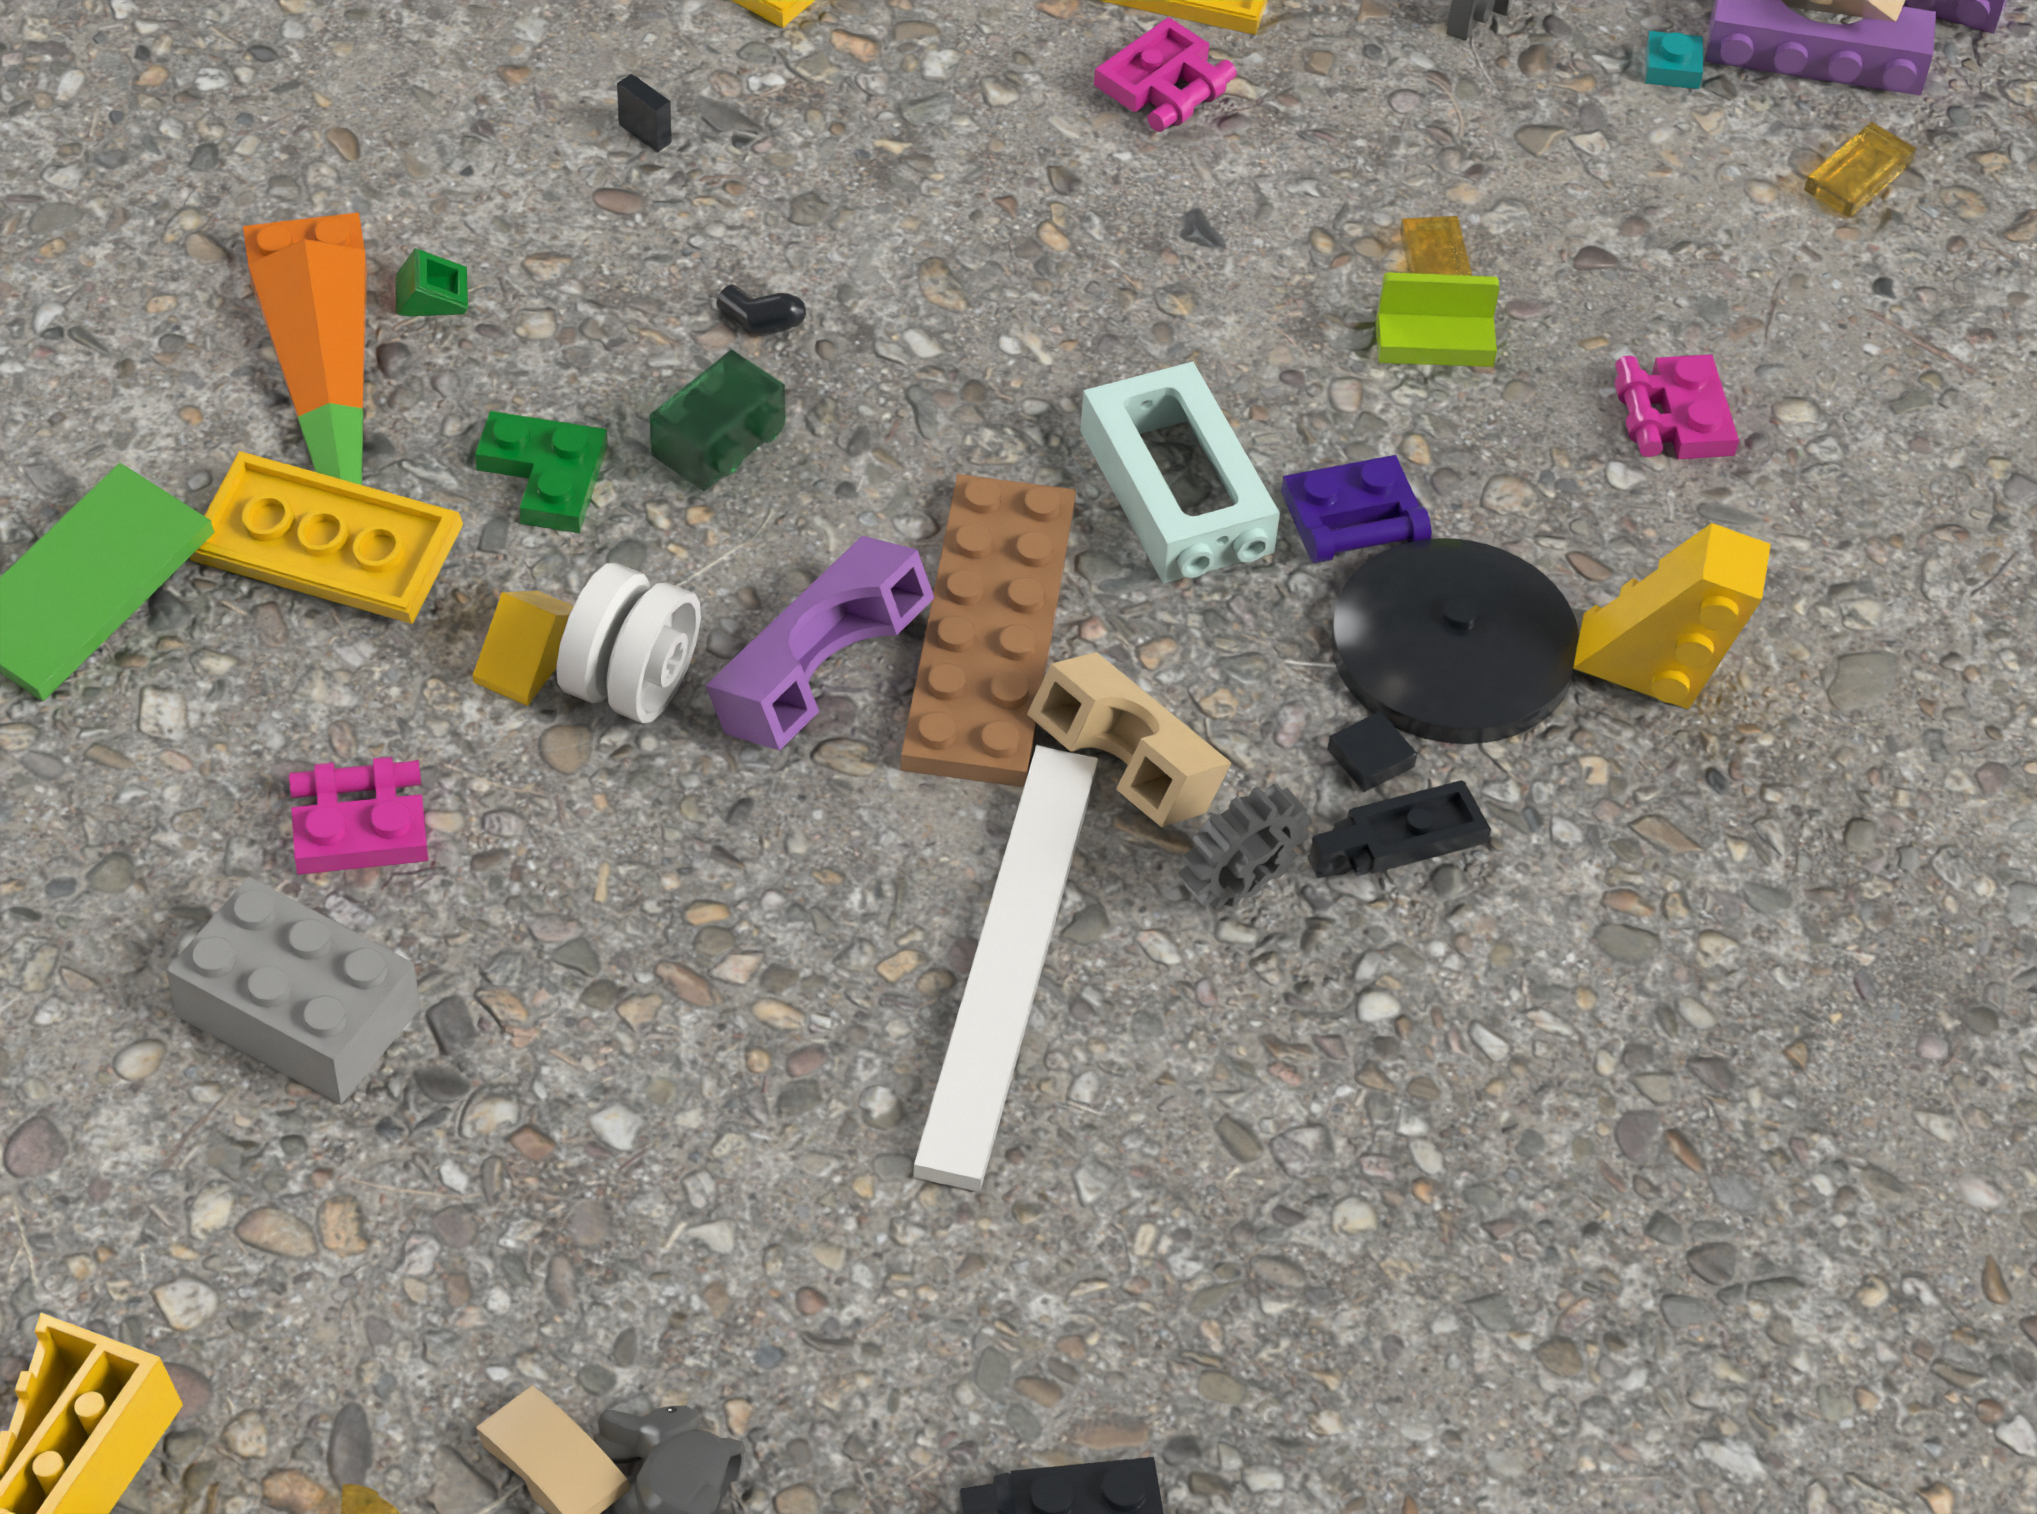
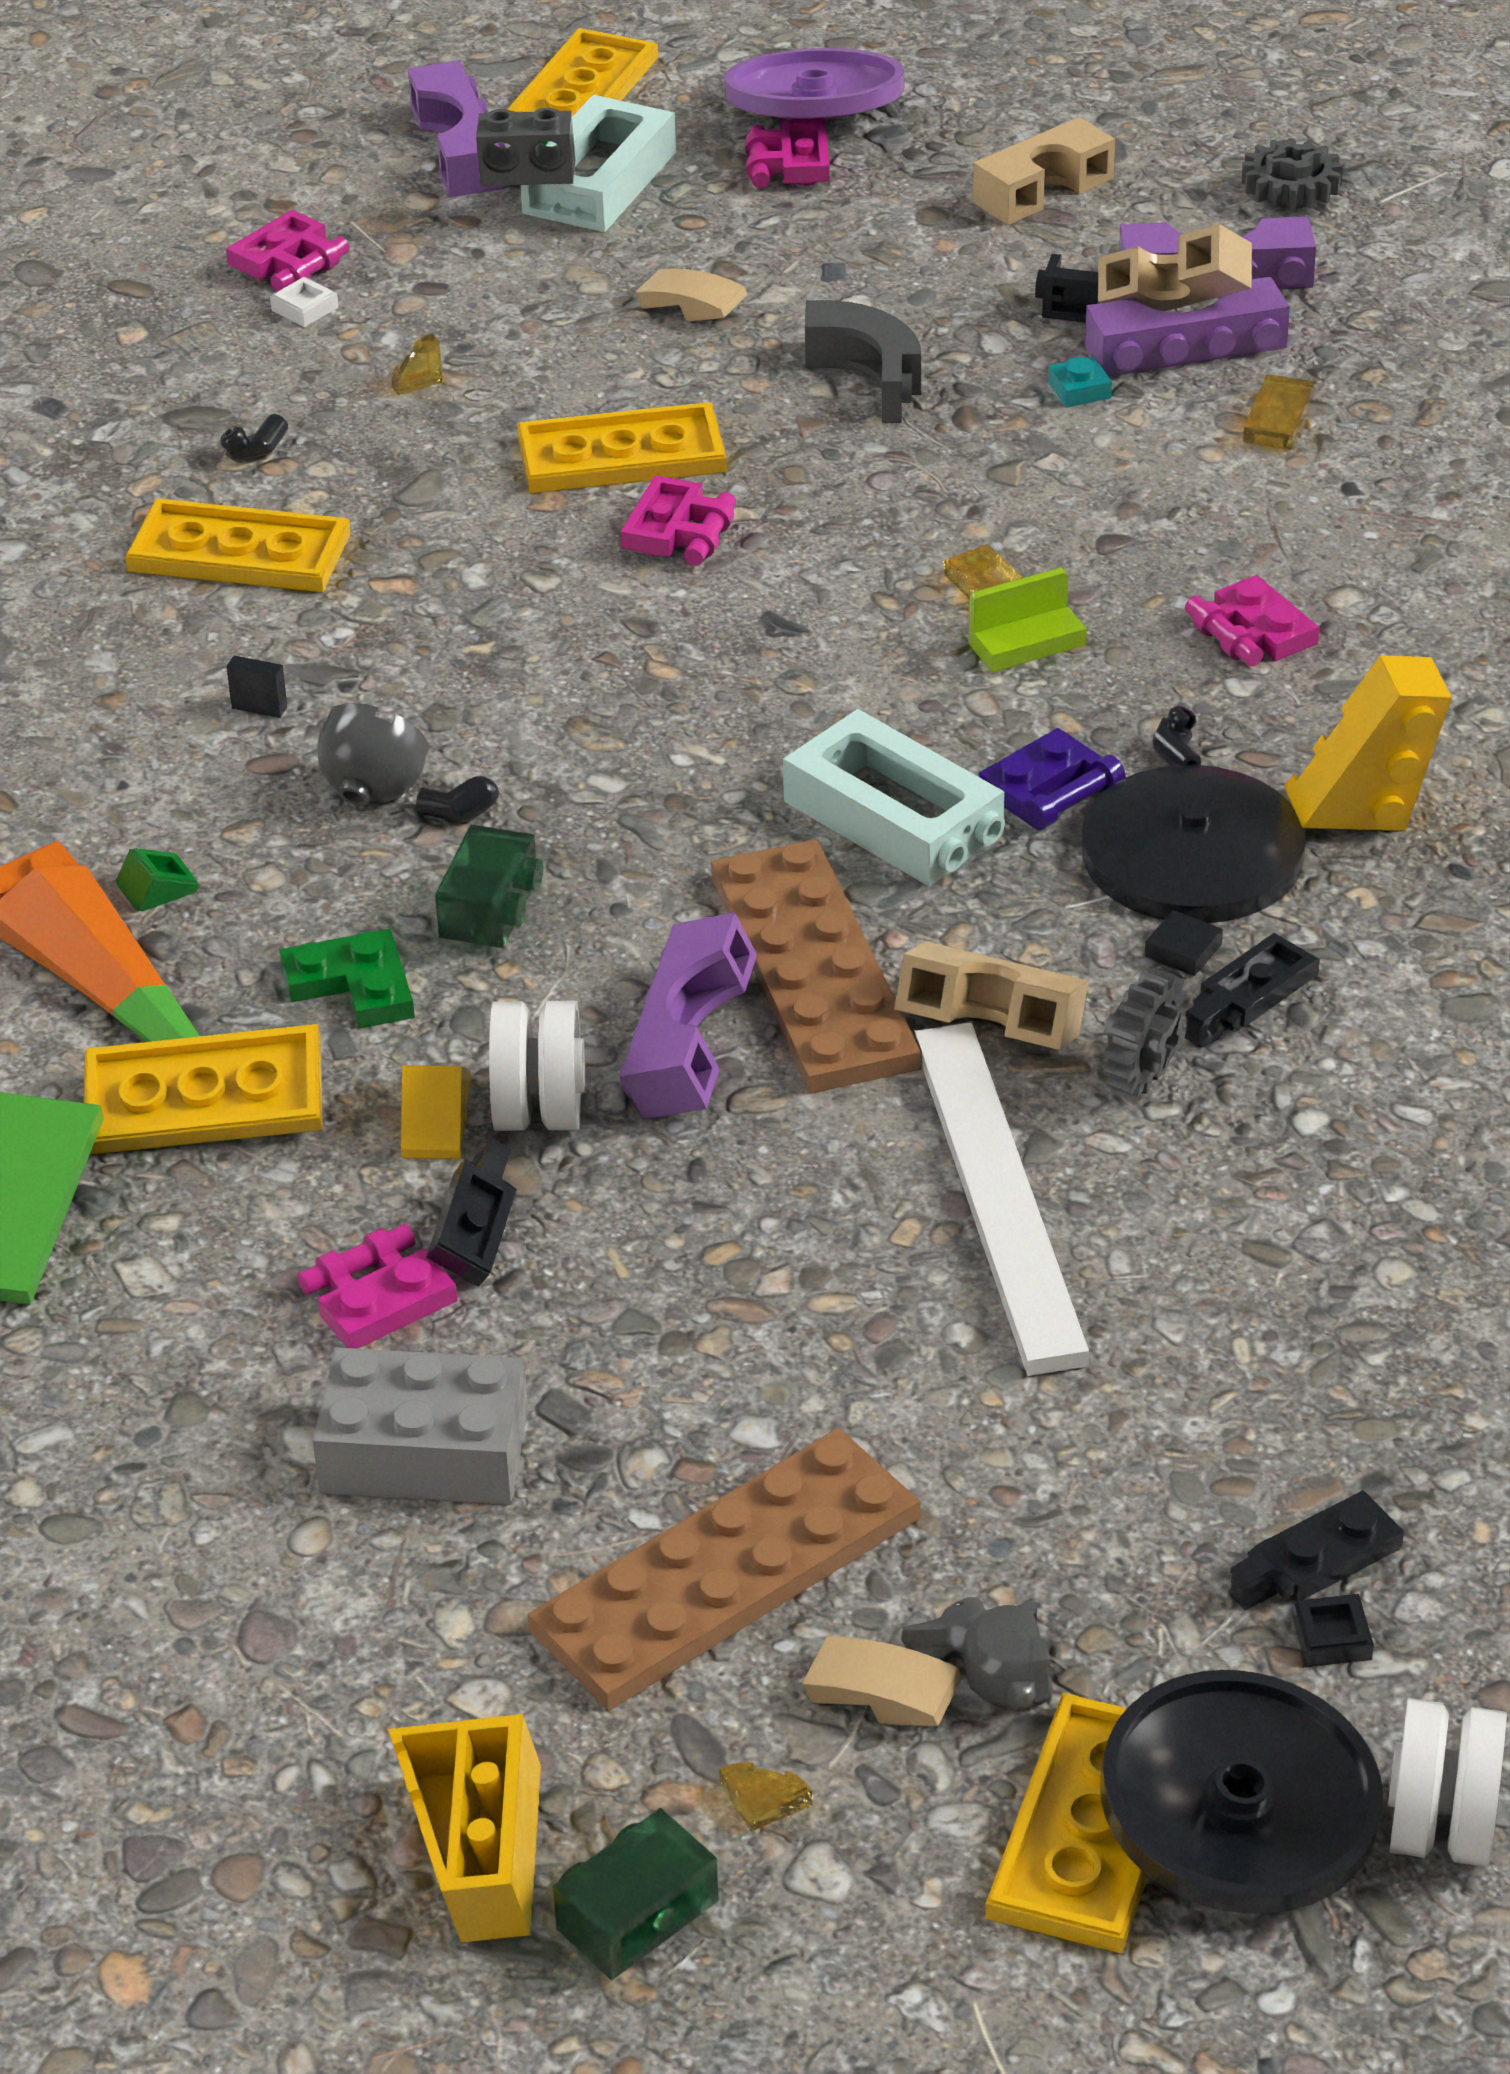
camera: 20 degrees left, 10 degrees down
(487, 777) = (474, 1215): none -> black hinge
(490, 1263) = (723, 1568): none -> medium nougat plate
(692, 234) = (368, 755): none -> dark grey cylinder
(1509, 511) = (1173, 737): none -> black arm

